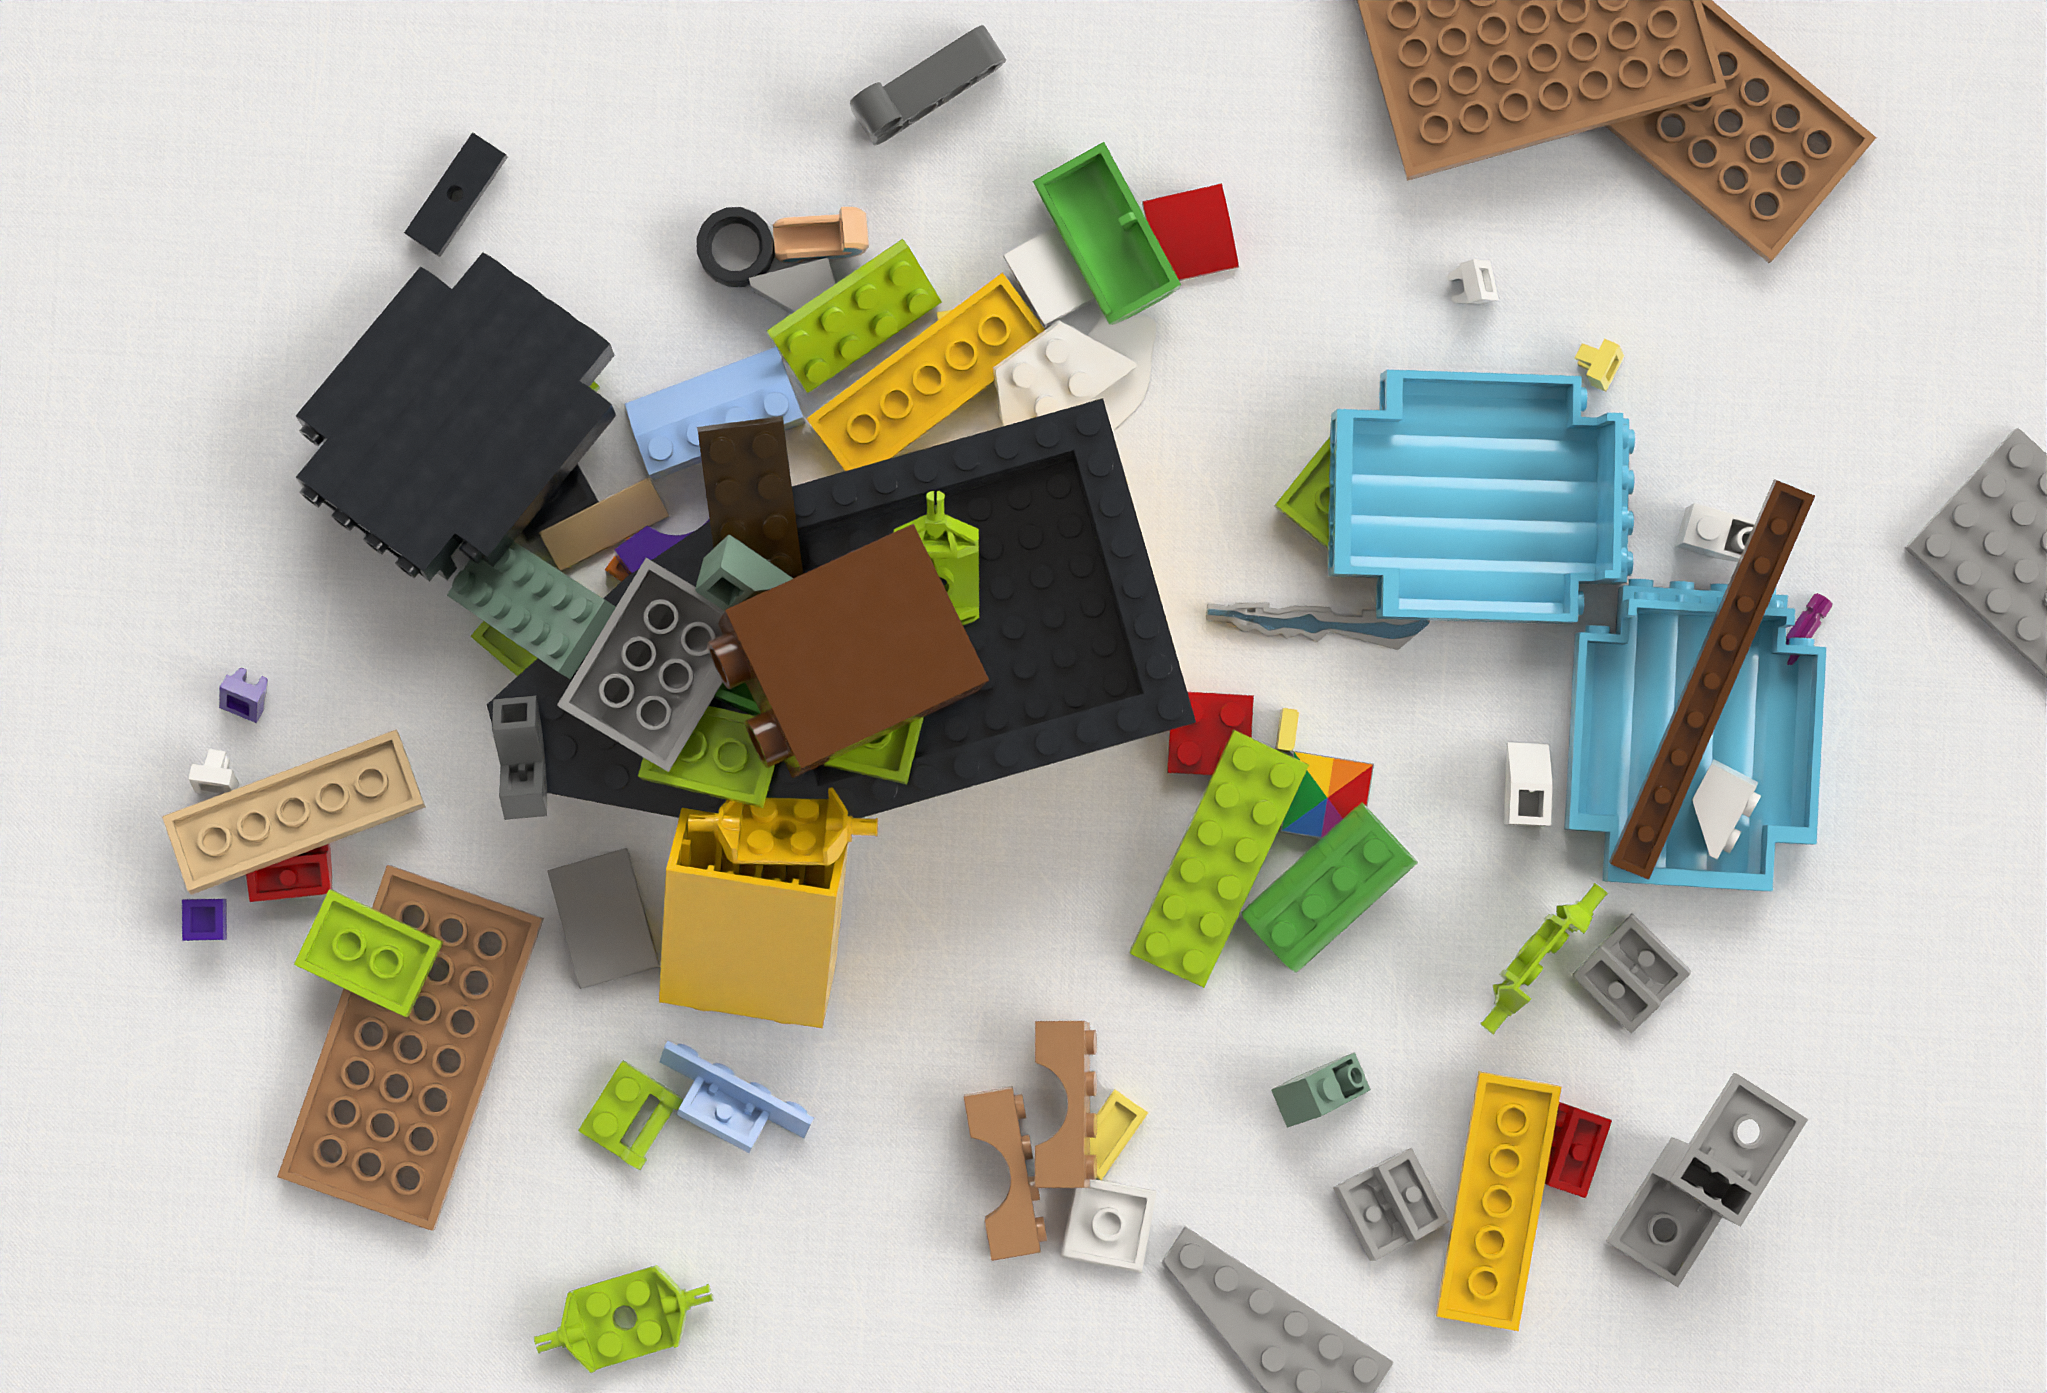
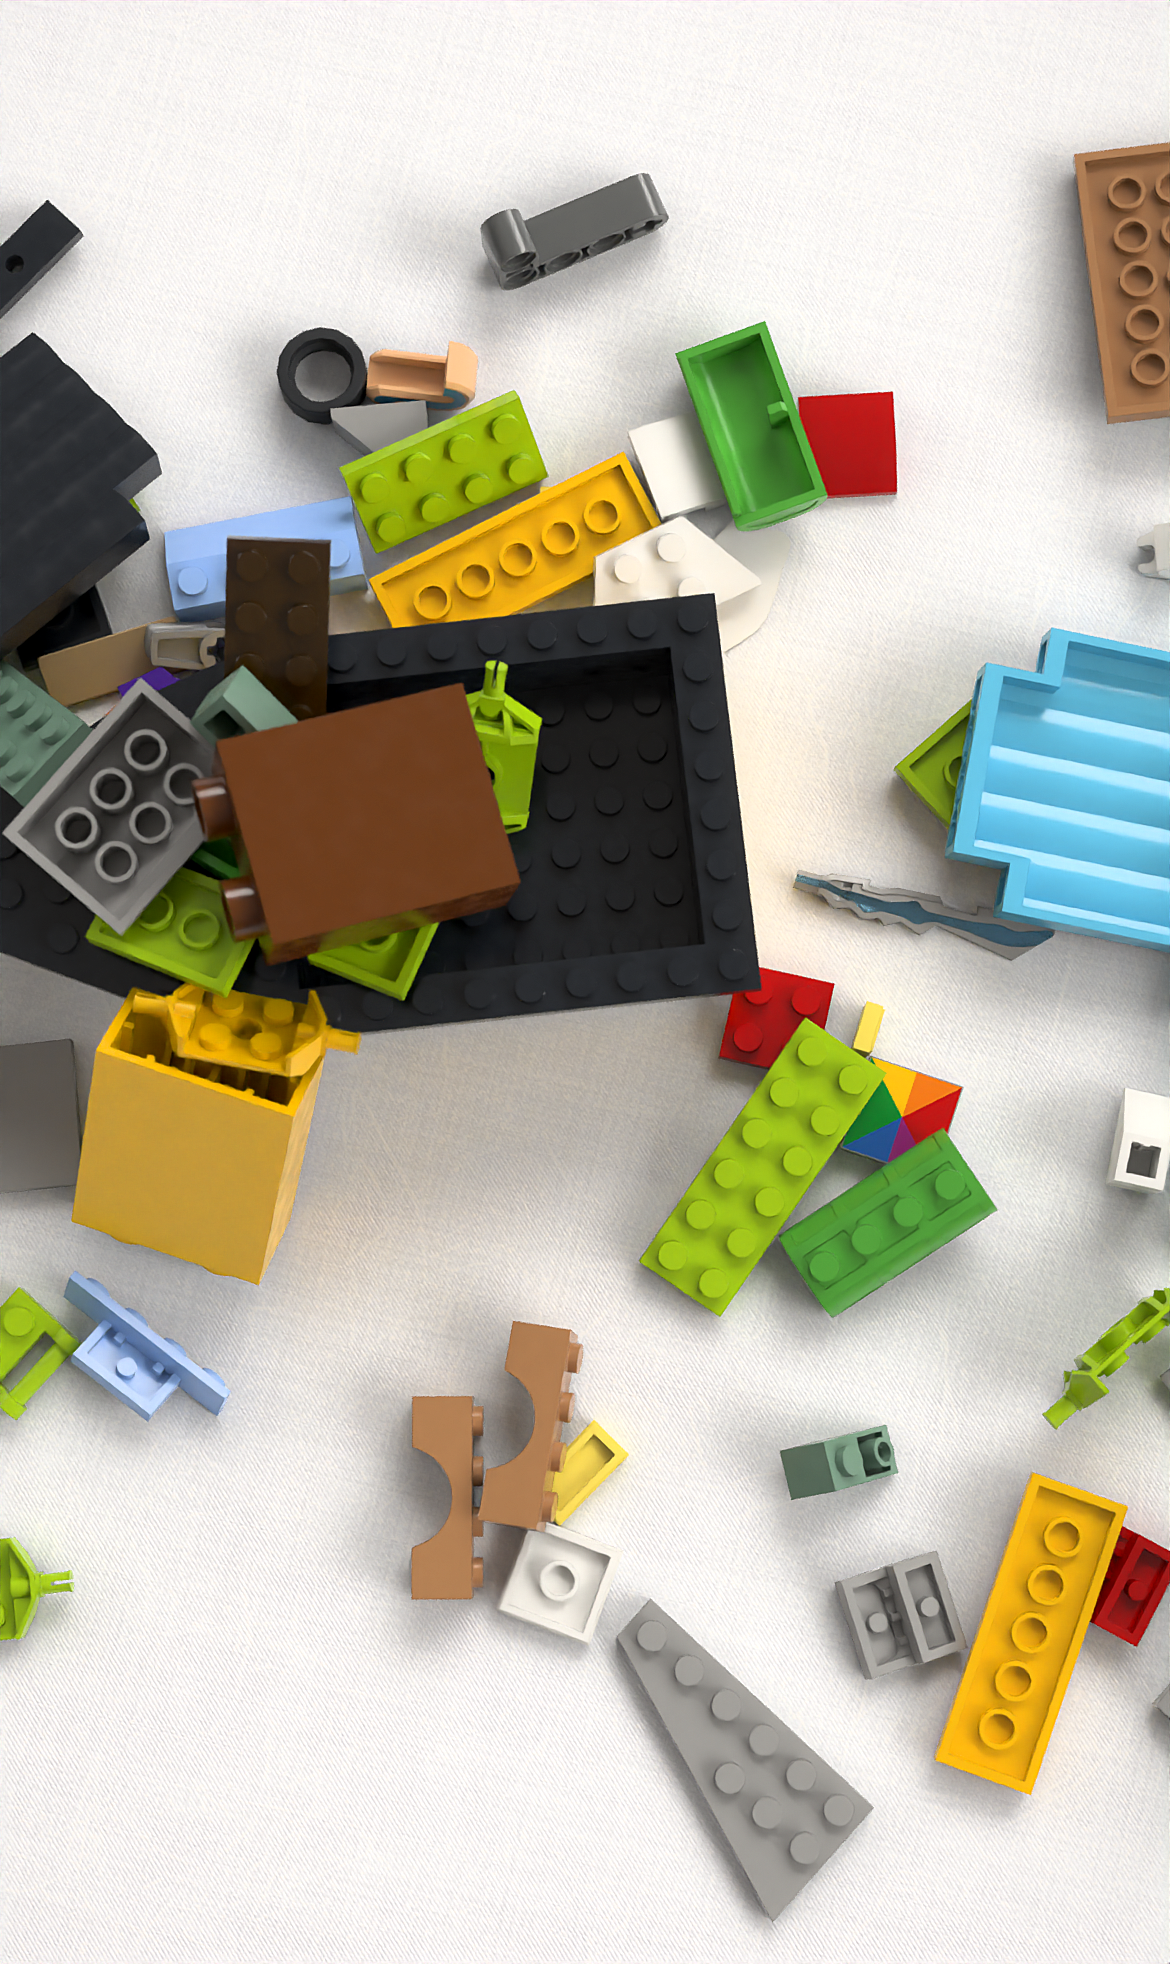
camera: 10 degrees right, 5 degrees down
(663, 501) = (184, 644): none -> light grey piece

